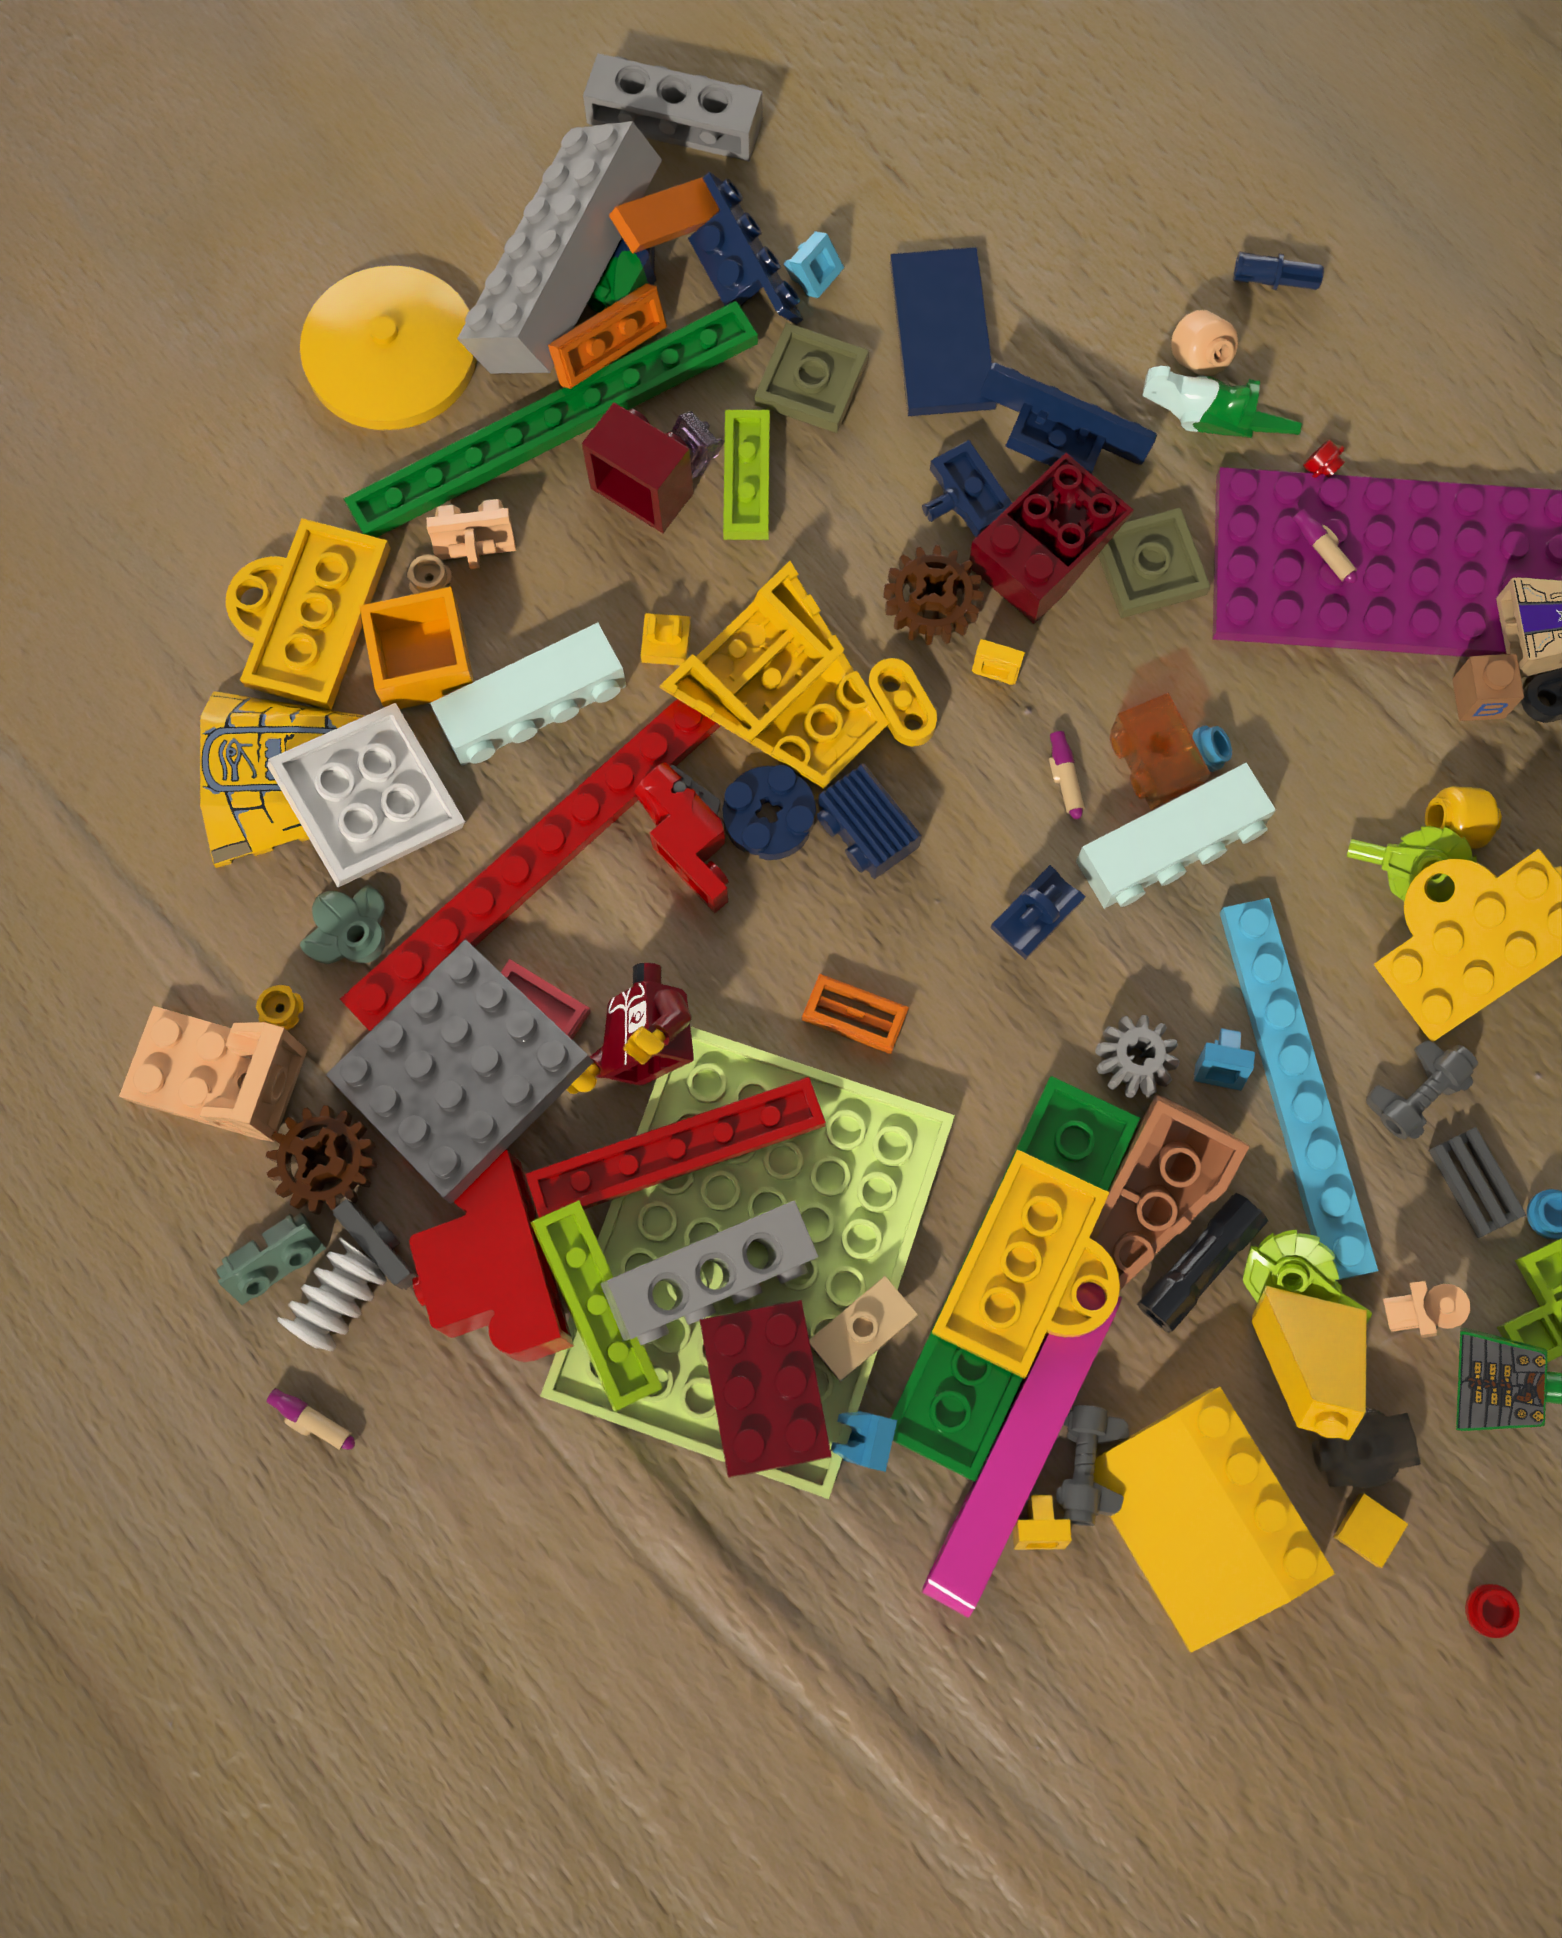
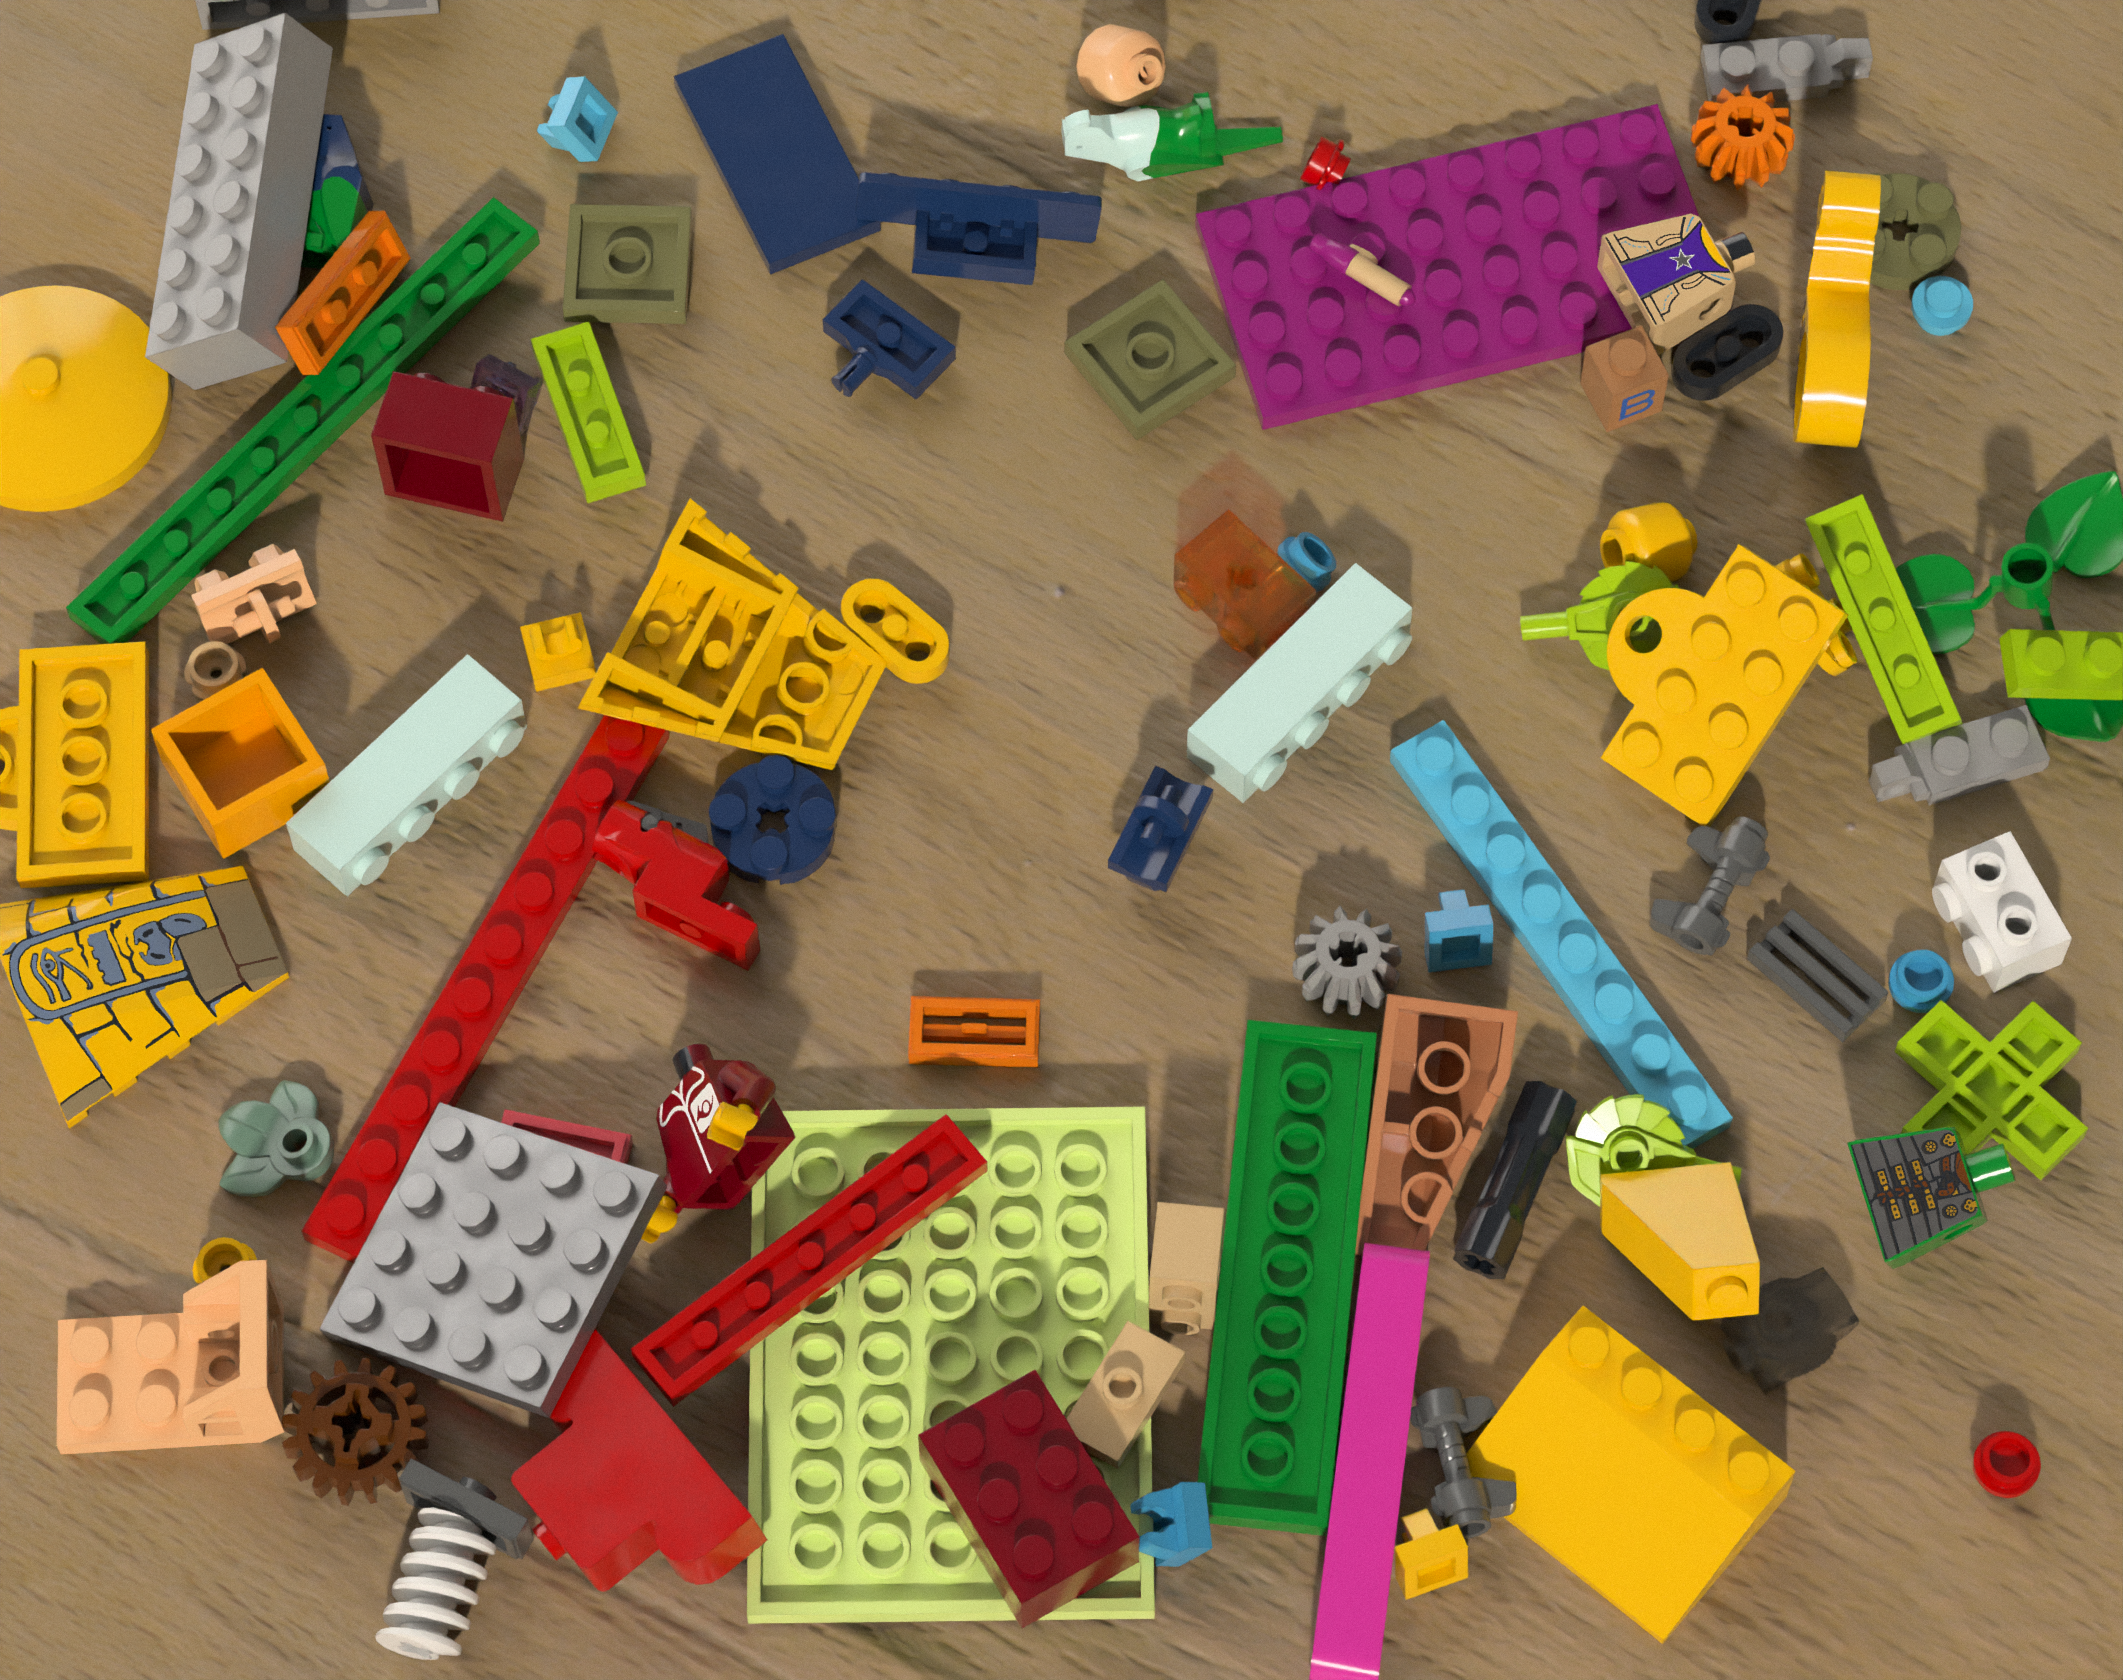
camera: 20 degrees left, 10 degrees down
(252, 1271) = (351, 1555): sand green hinge -> none
(366, 794) = (244, 963): white plate -> none
(579, 1270) = (780, 1472): lime plate -> none
(664, 215) = (366, 114): orange tile -> none
(736, 258) = (470, 142): dark blue bracket -> none
(780, 1232) = (973, 1306): light grey brick -> none
(867, 822) = (905, 791): dark blue brick -> none
(935, 577) = (879, 464): reddish brown gear -> none
(940, 1252) = (1185, 1267): none -> tan brick
(997, 662) = (999, 542): yellow tile -> none
(1029, 1268) = (1303, 1248): yellow plate -> none
(1048, 537) = (1007, 369): dark red slope -> none
(1064, 773) = (1134, 653): piece -> none
(1370, 1530) = (1829, 1423): yellow tile -> none
(1441, 1306) = (1792, 1141): light nougat hips -> none

